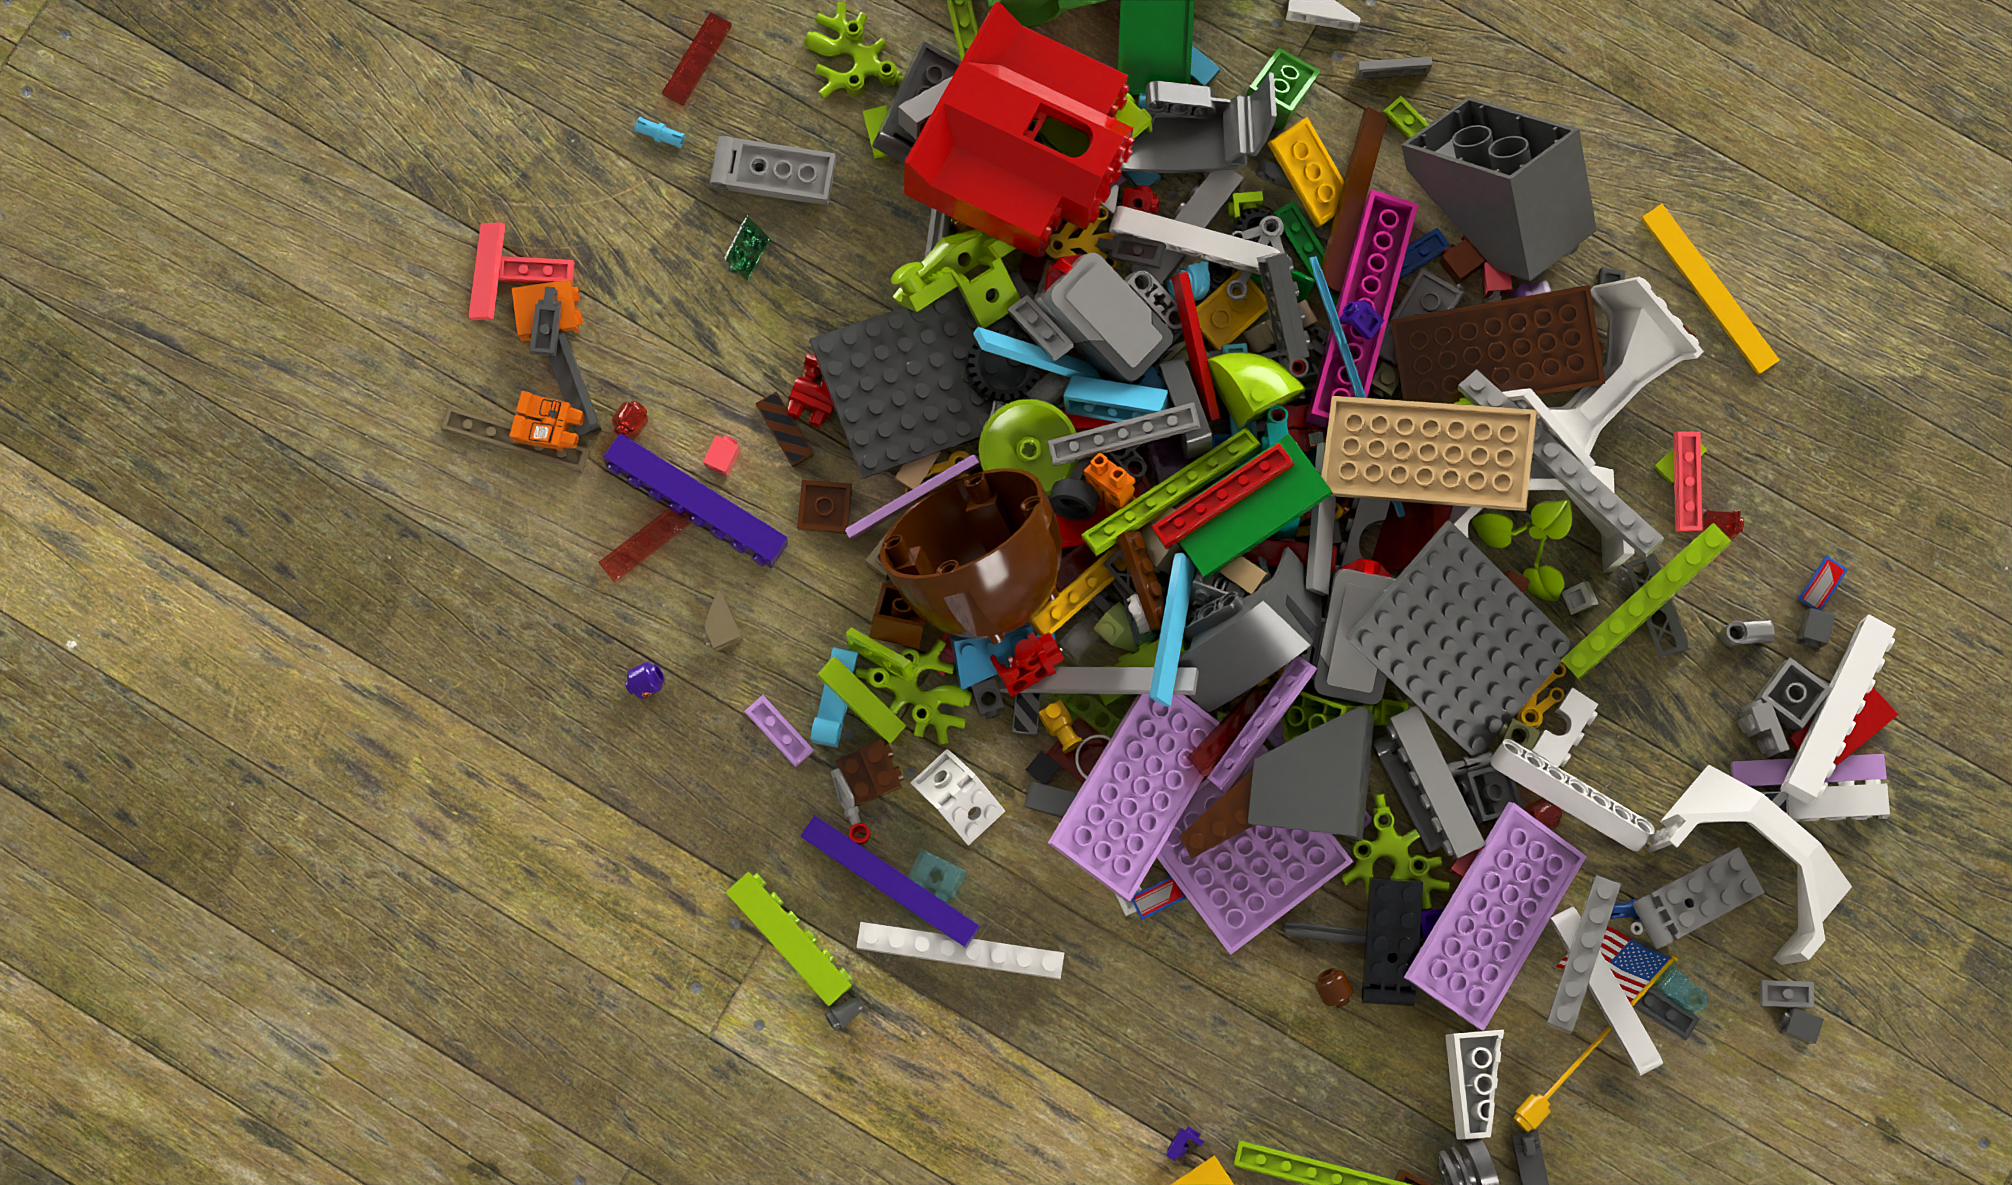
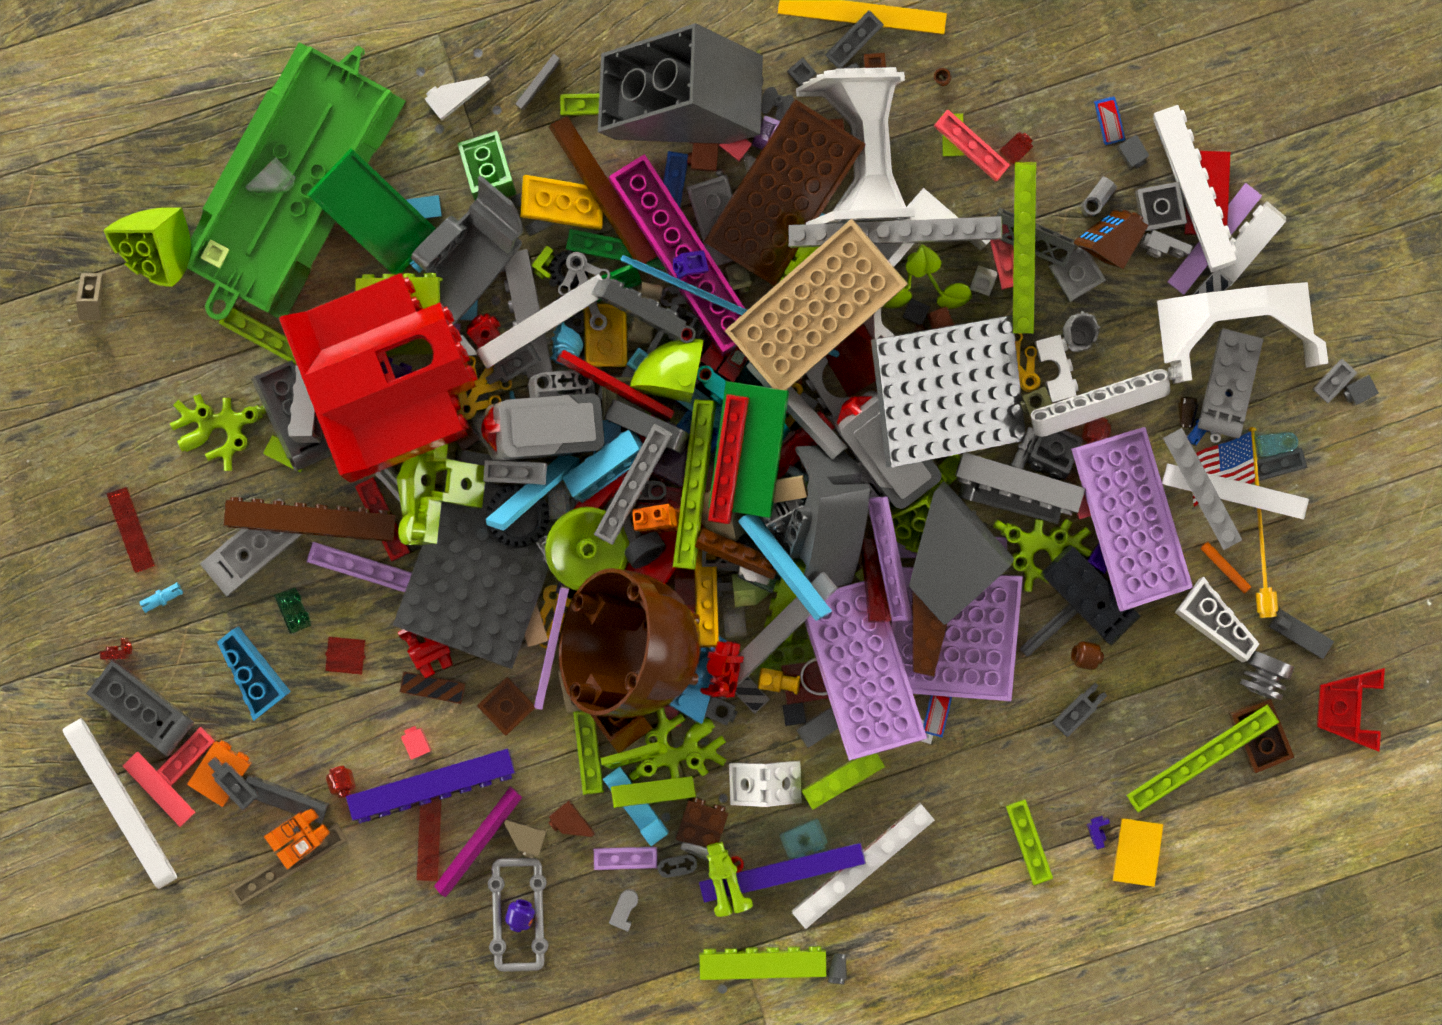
camera: 45 degrees left, 10 degrees up
(444, 249) = (119, 803): none -> white beam
(546, 193) = (140, 707): none -> dark grey hinge
(578, 136) = (113, 652): none -> clear red bracket
(600, 686) = (498, 945): none -> light grey bar
(660, 262) = (252, 673): none -> dark azure wedge
(679, 585) = (478, 841): none -> magenta tile
(731, 767) = (626, 902): none -> light grey leg
(746, 331) = (345, 655): none -> clear red piece
(770, 649) = (570, 821): none -> copper slope
(808, 788) = (675, 861): none -> dark grey beam
(834, 272) = (359, 567): none -> lavender tile
(838, 191) = (309, 520): none -> reddish brown brick
(845, 615) = (588, 753): none -> lime tile
(846, 822) = (722, 868): none -> lime piece
(897, 254) = (374, 500): none -> red tile
(1024, 862) = (841, 779): none -> lime brick
(1116, 1088) = (1029, 842): none -> lime tile
(1275, 1025) = (1078, 711): none -> dark grey hinge
(1500, 559) = (916, 312): none -> black tile
(1528, 1046) = (1225, 567): none -> orange piece
(1564, 275) = (771, 97): none -> dark grey piece
(1616, 595) = (1004, 260): none -> coral tile
(1618, 720) = (1081, 331): none -> light grey hair
(1635, 883) = (1187, 411): none -> dark brown cone
(1663, 677) = (1078, 276): none -> light grey tile
(1690, 300) = (854, 39): none -> dark grey tile
(1726, 676) = (1113, 237): none -> reddish brown slope
(1727, 404) = (945, 73): none -> reddish brown hinge

